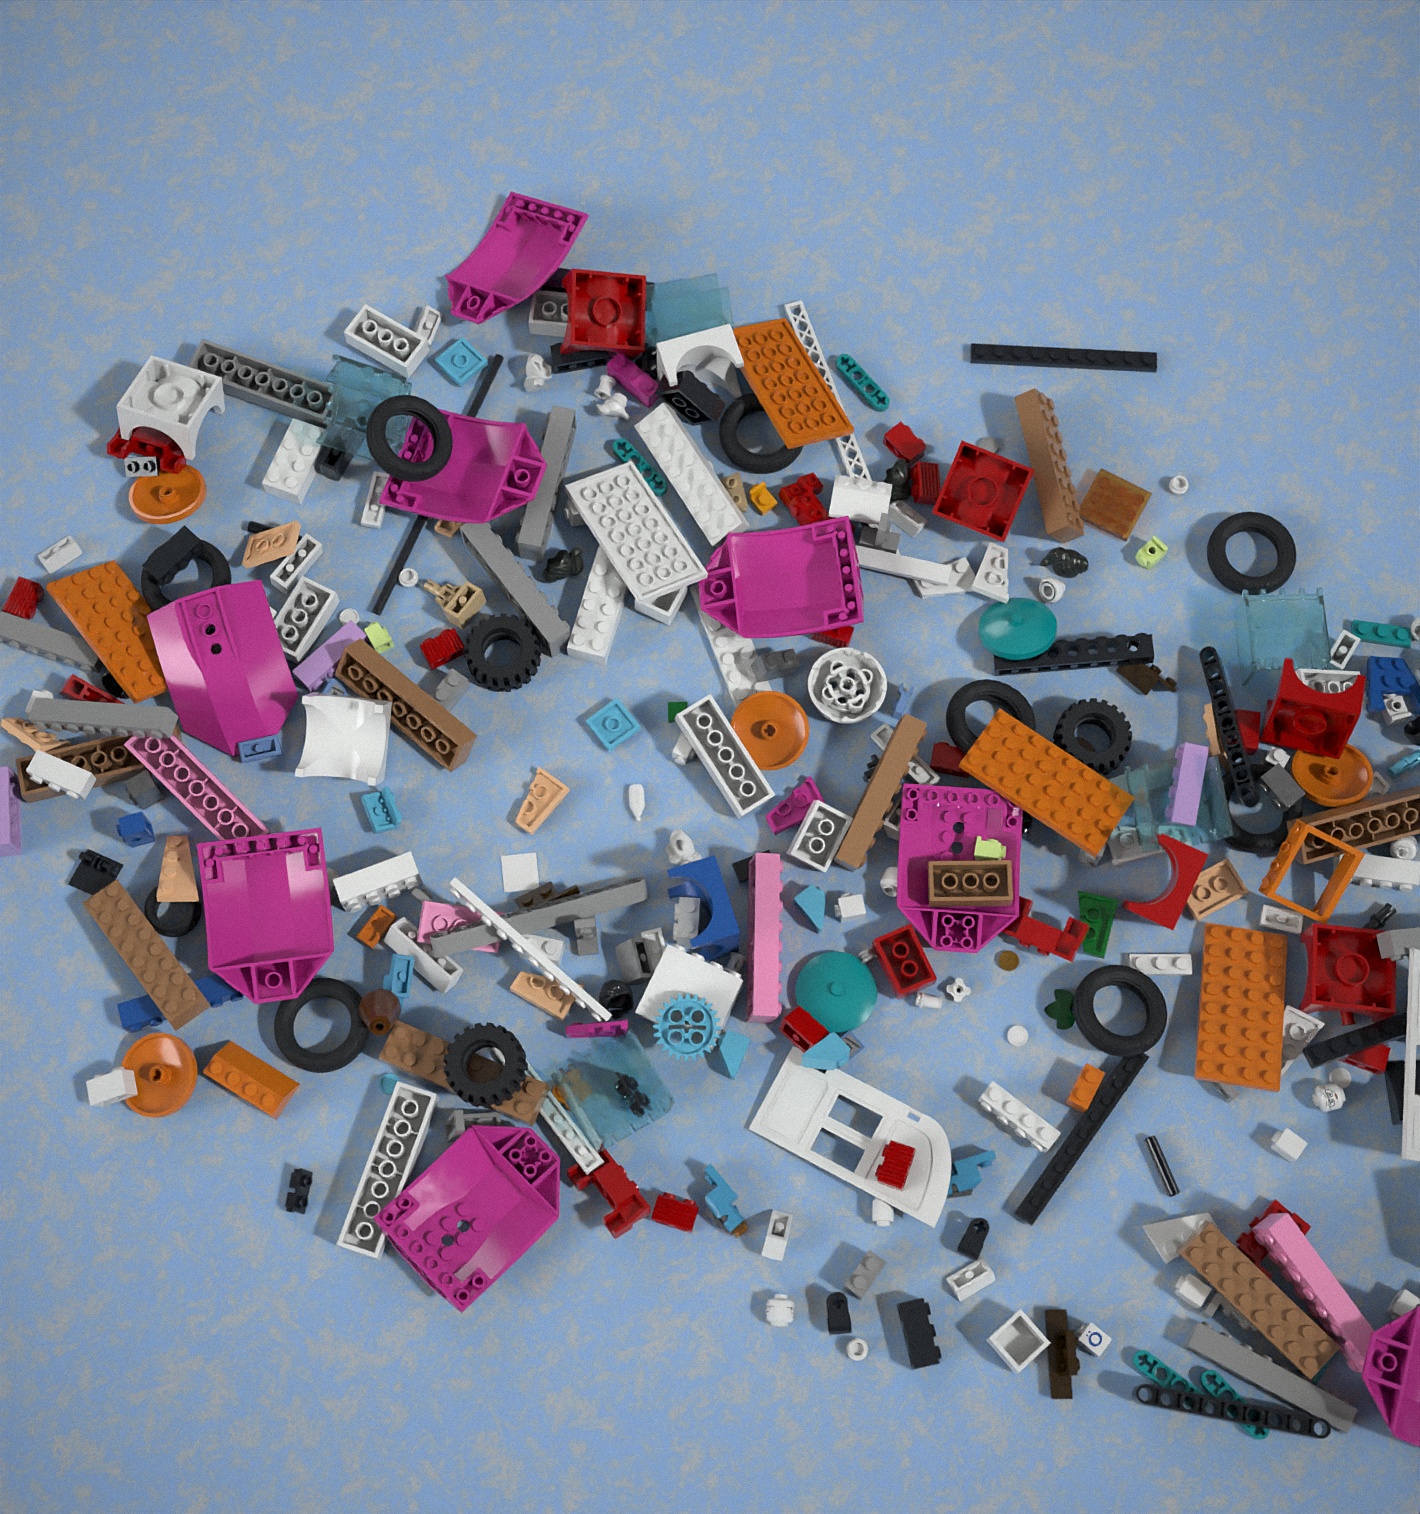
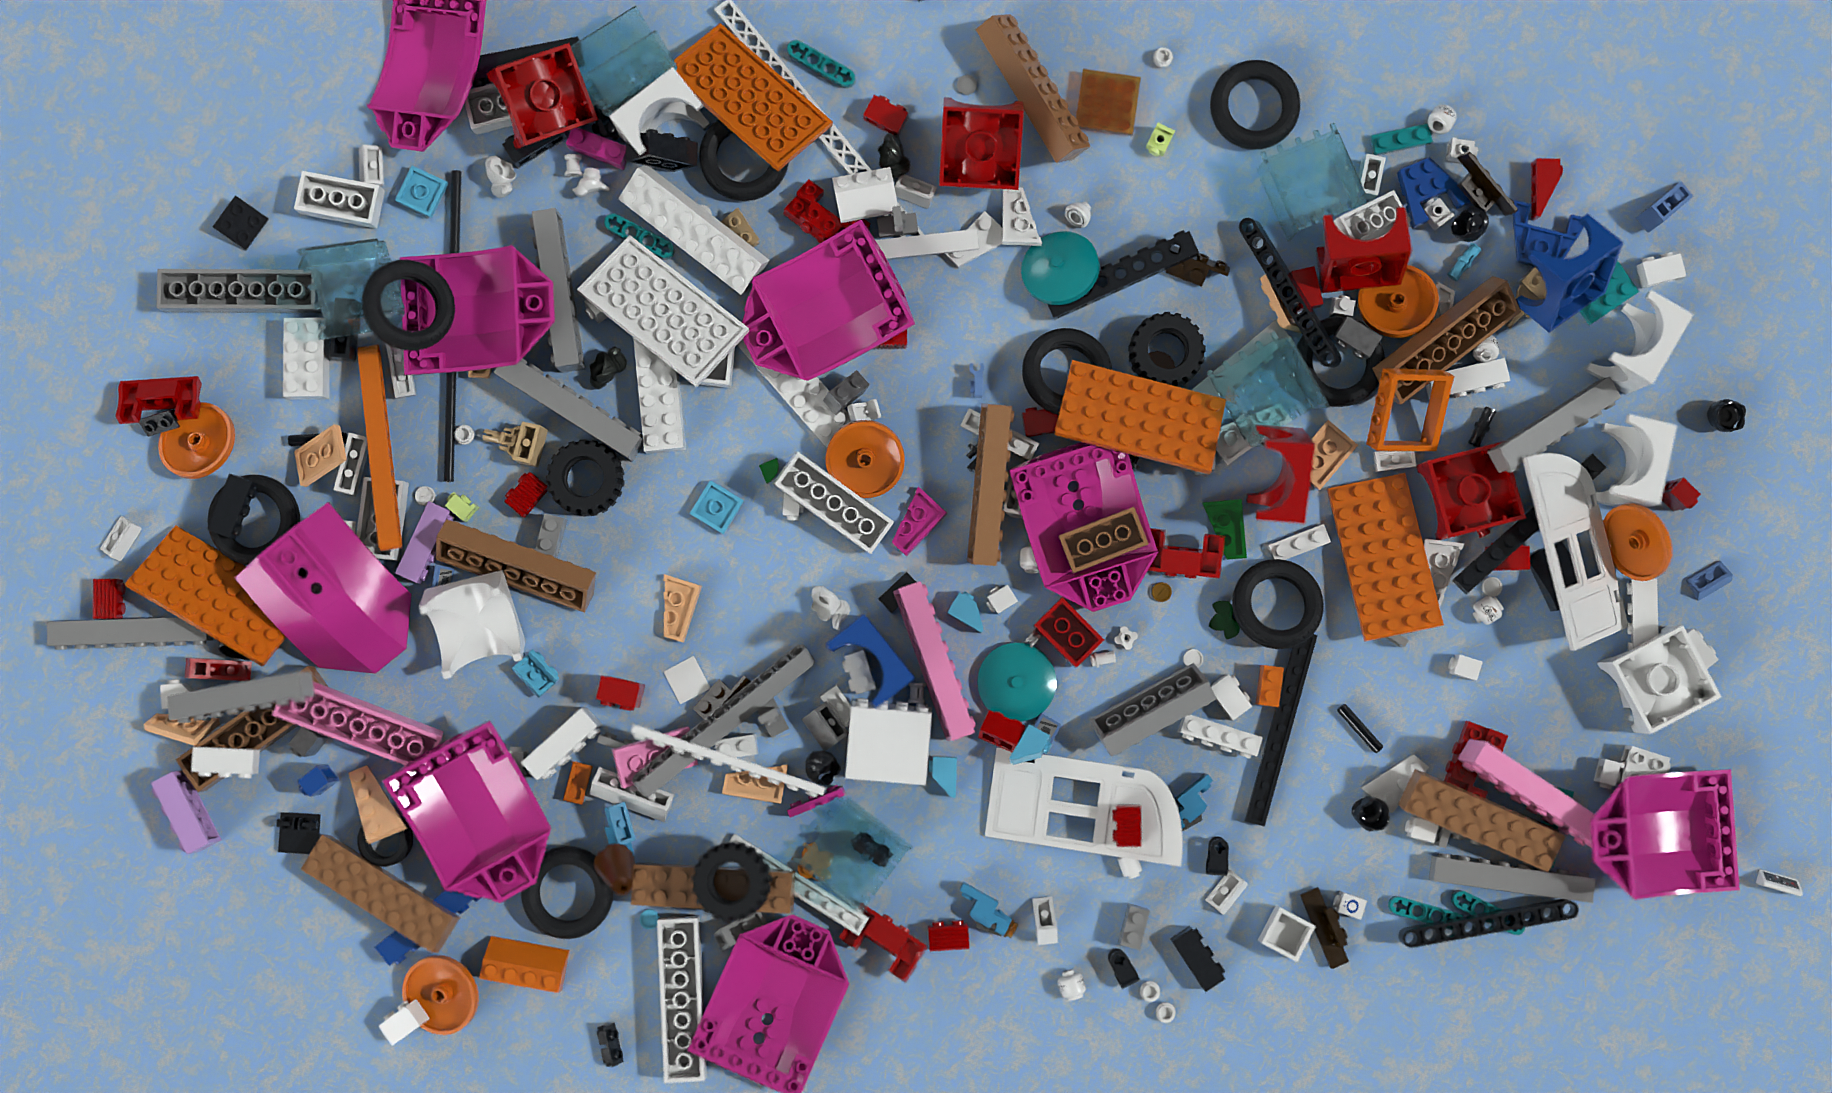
camera: 20 degrees left, 15 degrees up
(171, 401) = (157, 351): white piece -> none
(260, 749) = (397, 658): medium blue slope -> none
(291, 330) = (240, 222): none -> black hinge
(327, 557) = (379, 447): none -> orange beam
(453, 855) = (621, 692): none -> red piece
(636, 800) = (767, 571): white piece -> none
(686, 1046) = (891, 759): medium azure gear -> none
(761, 498) = (769, 224): light orange bracket -> none
(792, 689) = (864, 411): none -> white bracket
(819, 836) = (949, 545): white brick -> none
(834, 668) = (937, 371): white brick -> none
(865, 1377) = (1165, 1012): none -> white plate
(925, 482) = (920, 149): red brick -> none
(960, 1065) = (1153, 709): none -> light grey brick
(989, 850) = (1110, 500): yellowish green brick -> none
(1041, 1084) = (1230, 696): none -> white brick
(1065, 562) = (1082, 180): pearl dark grey hair -> none
(1145, 1252) = (1371, 813): none -> black hair
(1187, 784) = (1270, 368): lavender brick -> none

